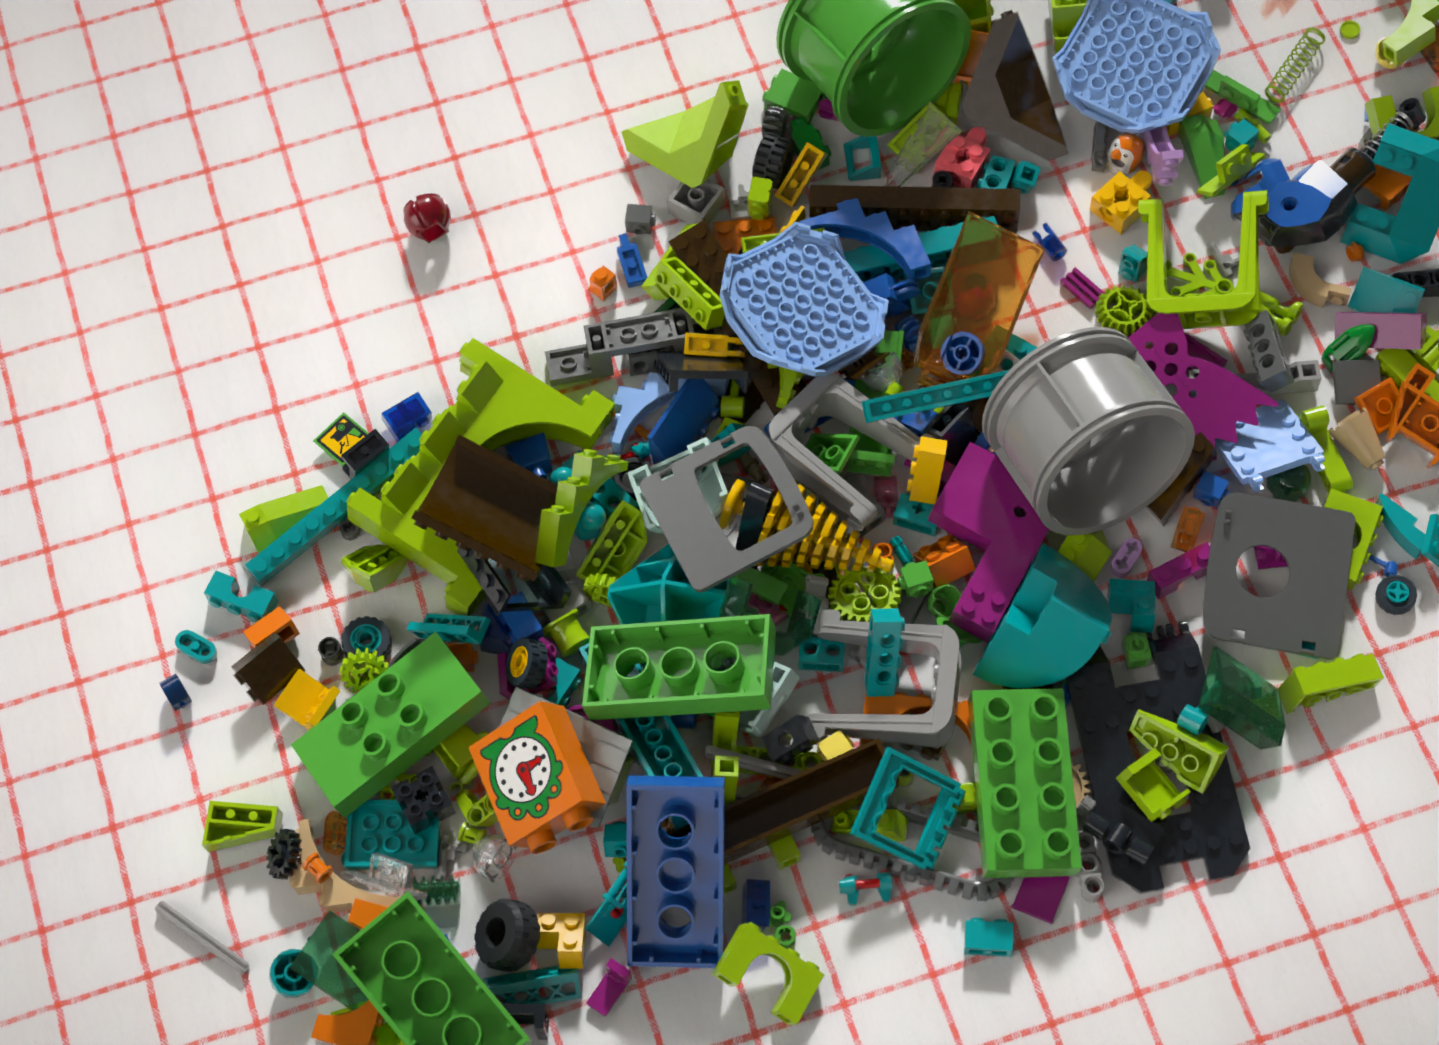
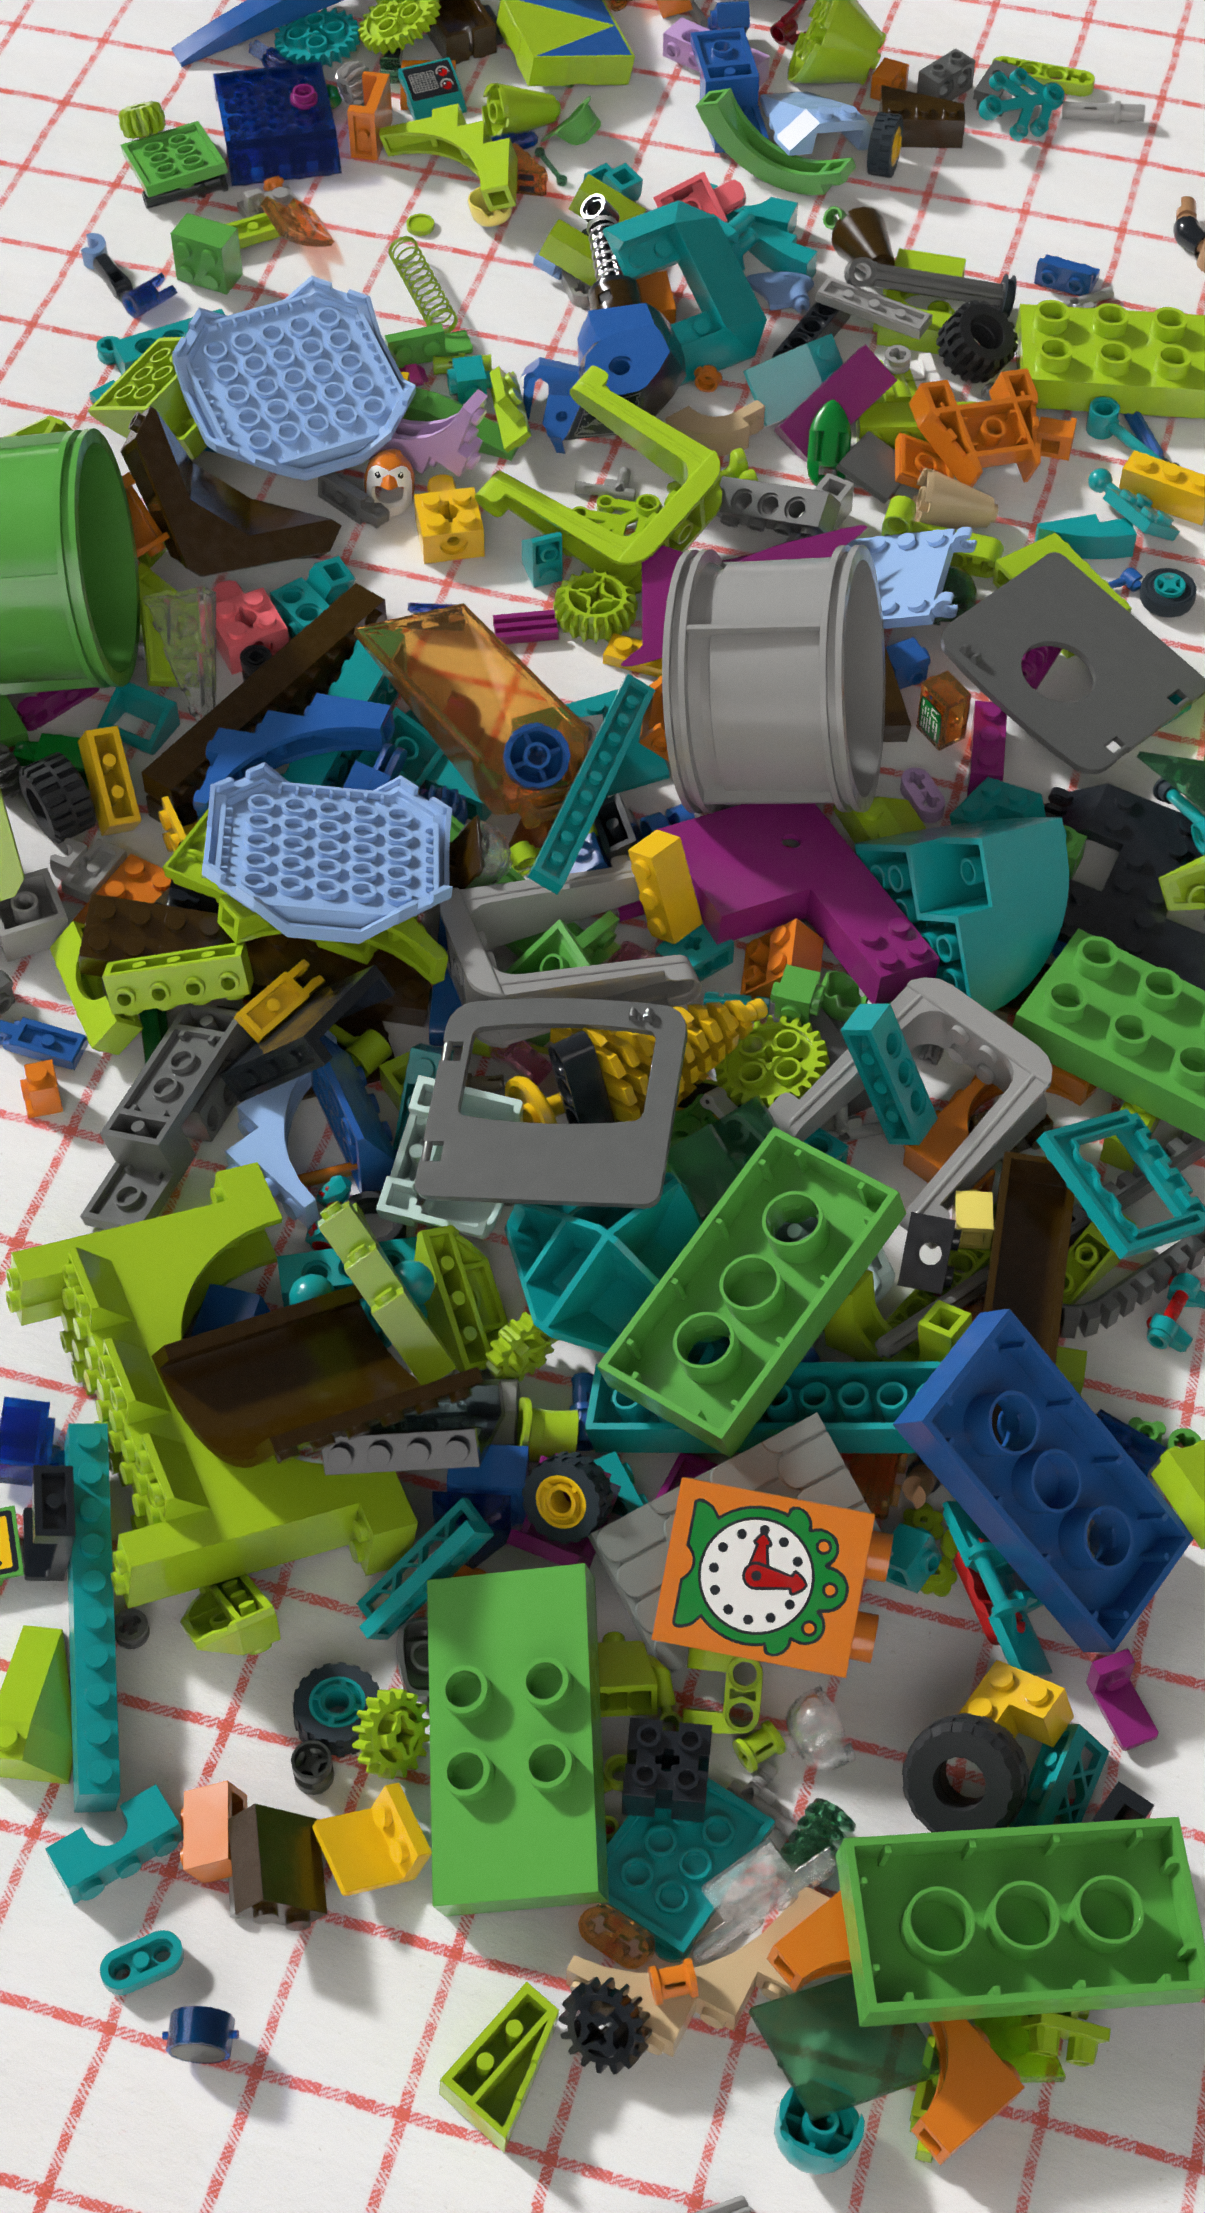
camera: 60 degrees left, 10 degrees down
(760, 198) = (103, 836): lime brick -> none

